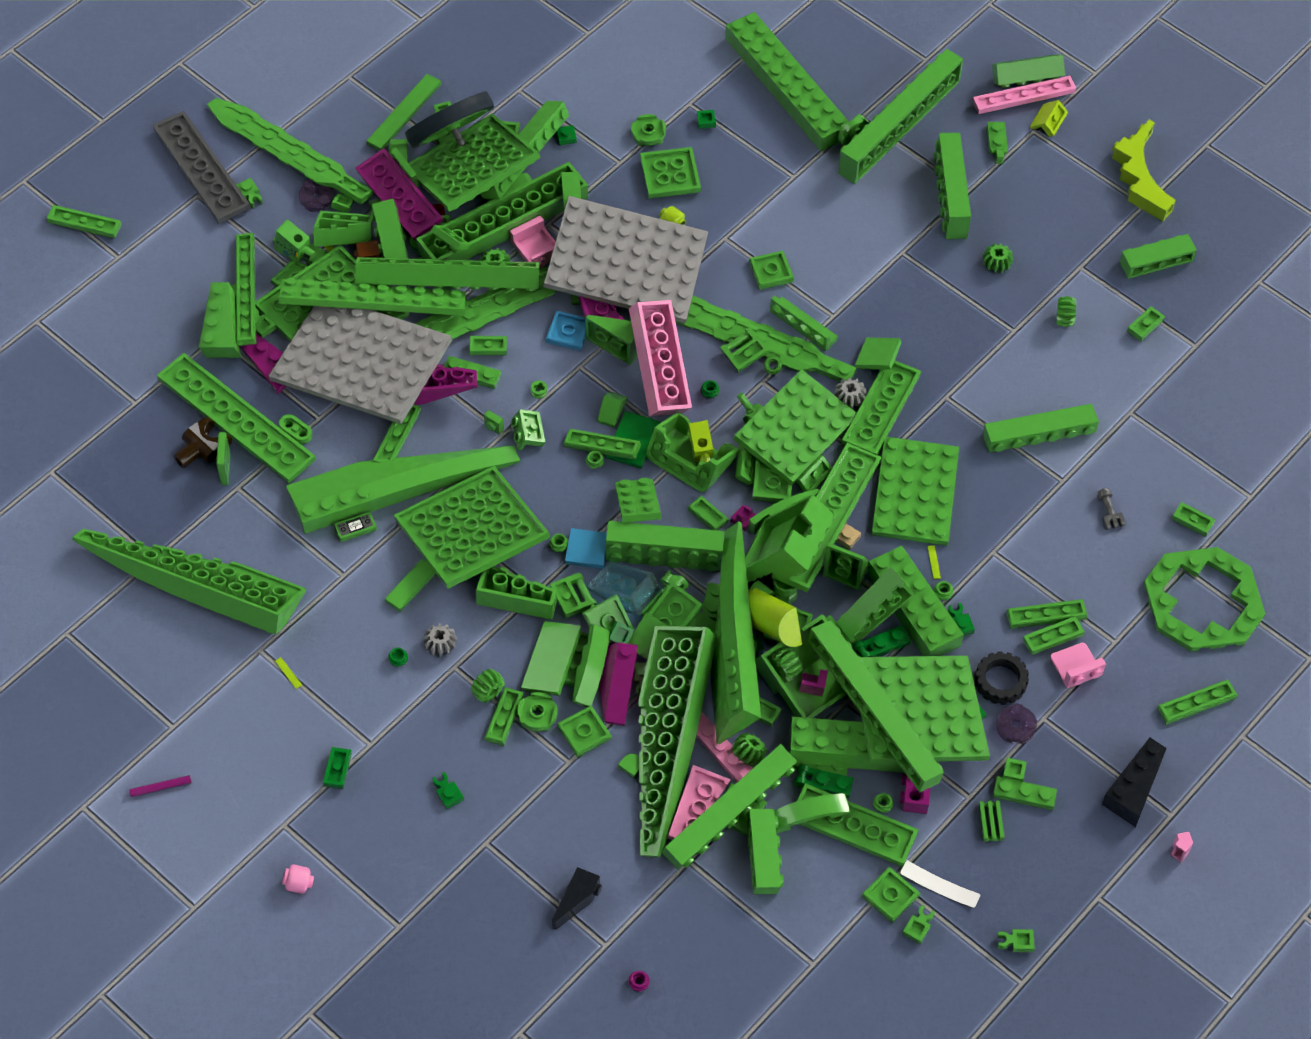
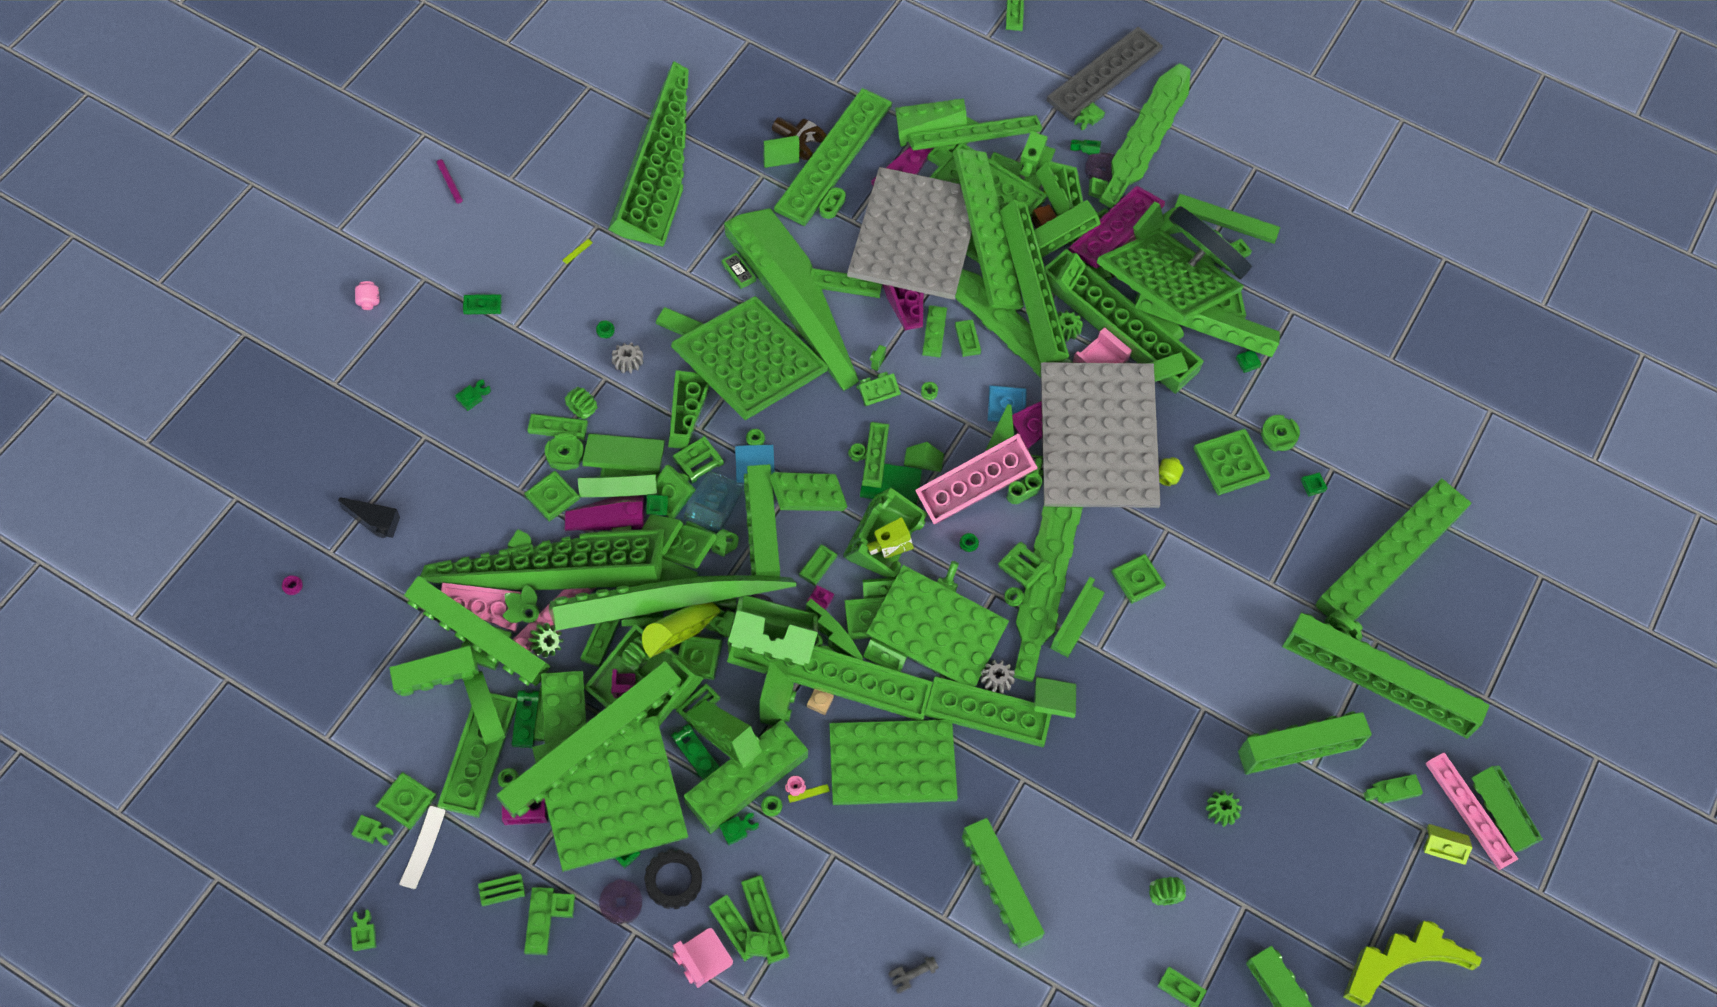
camera: 75 degrees right, 5 degrees up
(289, 198) = (1087, 146): none -> green plate
(707, 768) = (519, 604): none -> bright green plate
(928, 563) = (795, 780): none -> bright pink plate
(1073, 617) = (757, 944): none -> bright green plate

